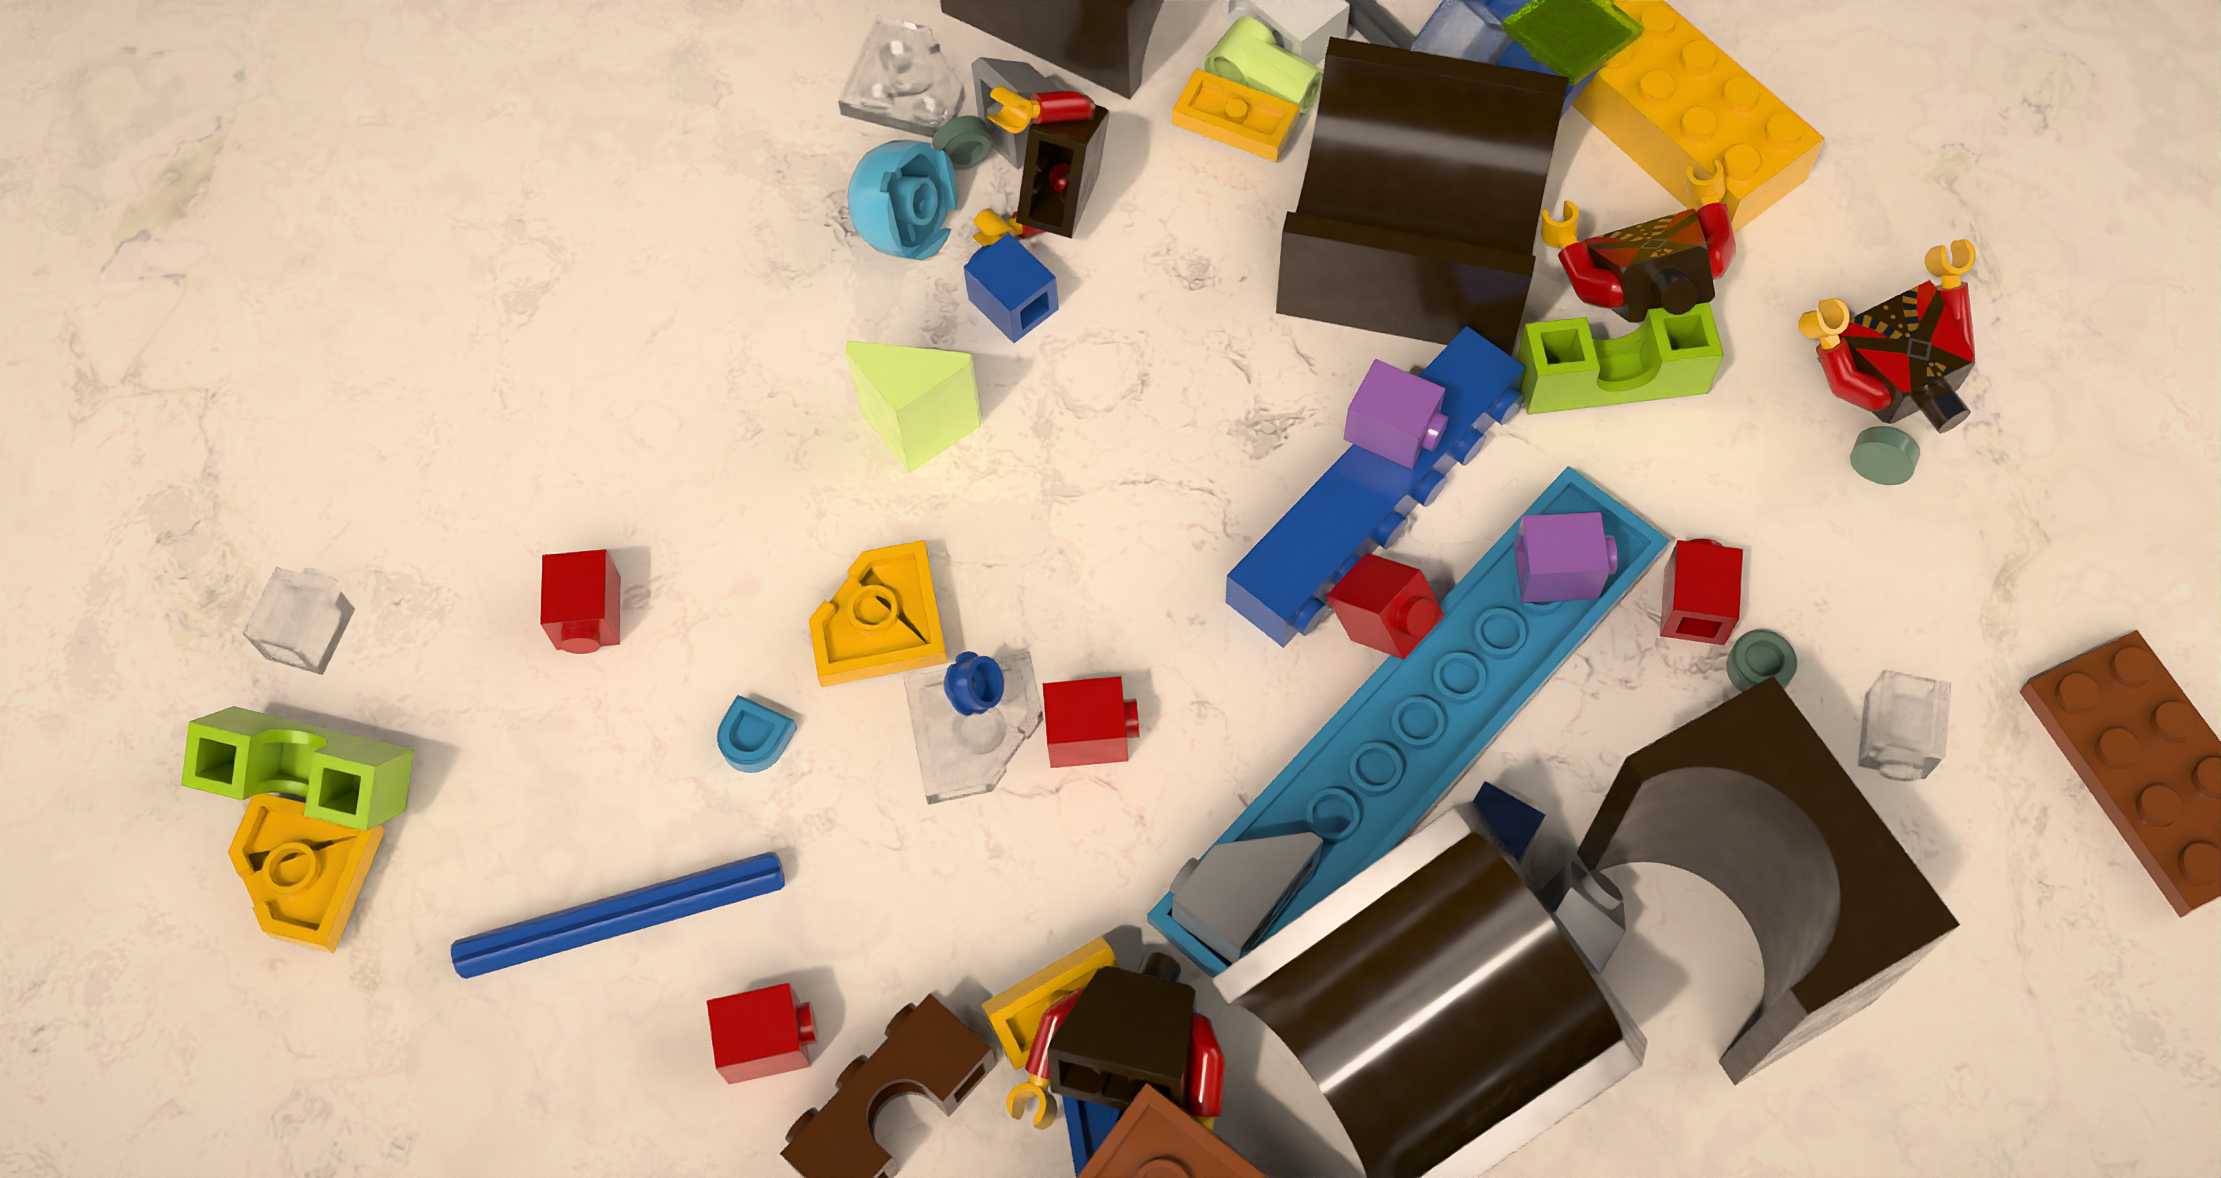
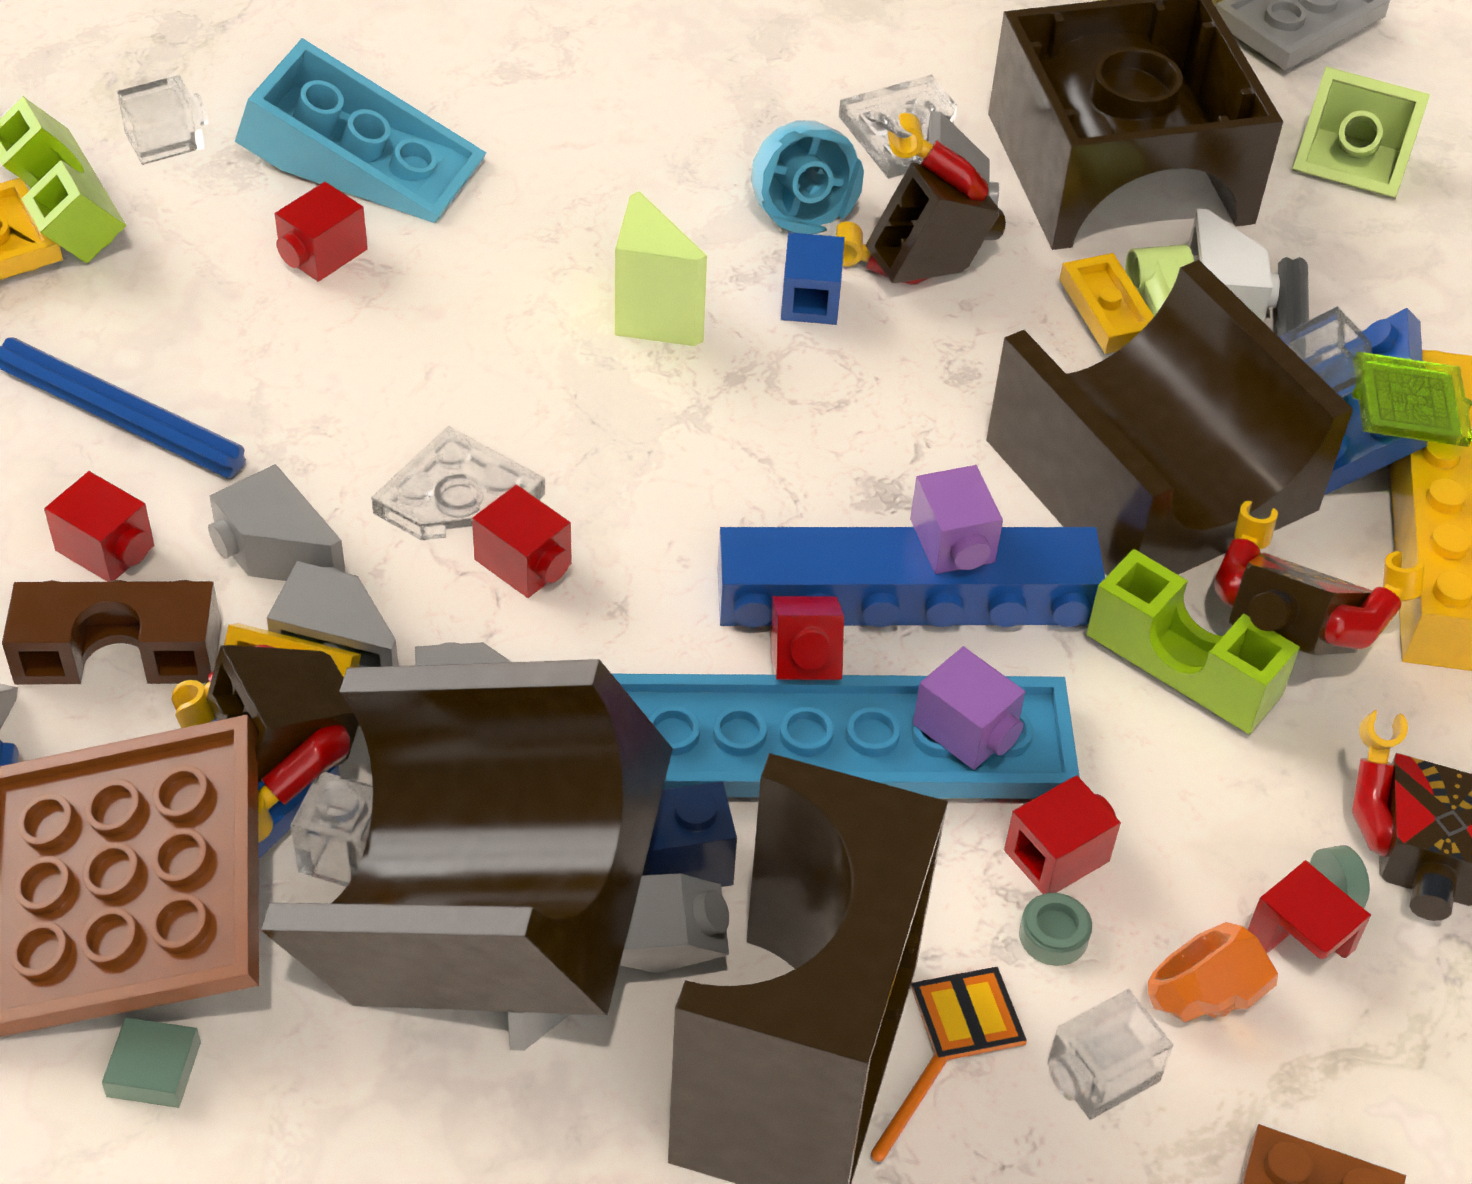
camera: 40 degrees right, 15 degrees down
(492, 484) = (348, 131): none -> medium azure slope
(753, 735) = (321, 386): dark azure tile -> none
(879, 618) = (480, 388): yellow plate -> none
(897, 898) = (271, 527): none -> light grey slope
(964, 141) = (884, 176): sand green tile -> none
(973, 683) = (489, 453): blue plate -> none
(1042, 922) = (335, 612): none -> light grey slope
(1265, 1087) = (332, 828): none -> clear brick
(1896, 602) = (1213, 974): none -> orange rock
(1903, 498) = (1310, 911): none -> red panel

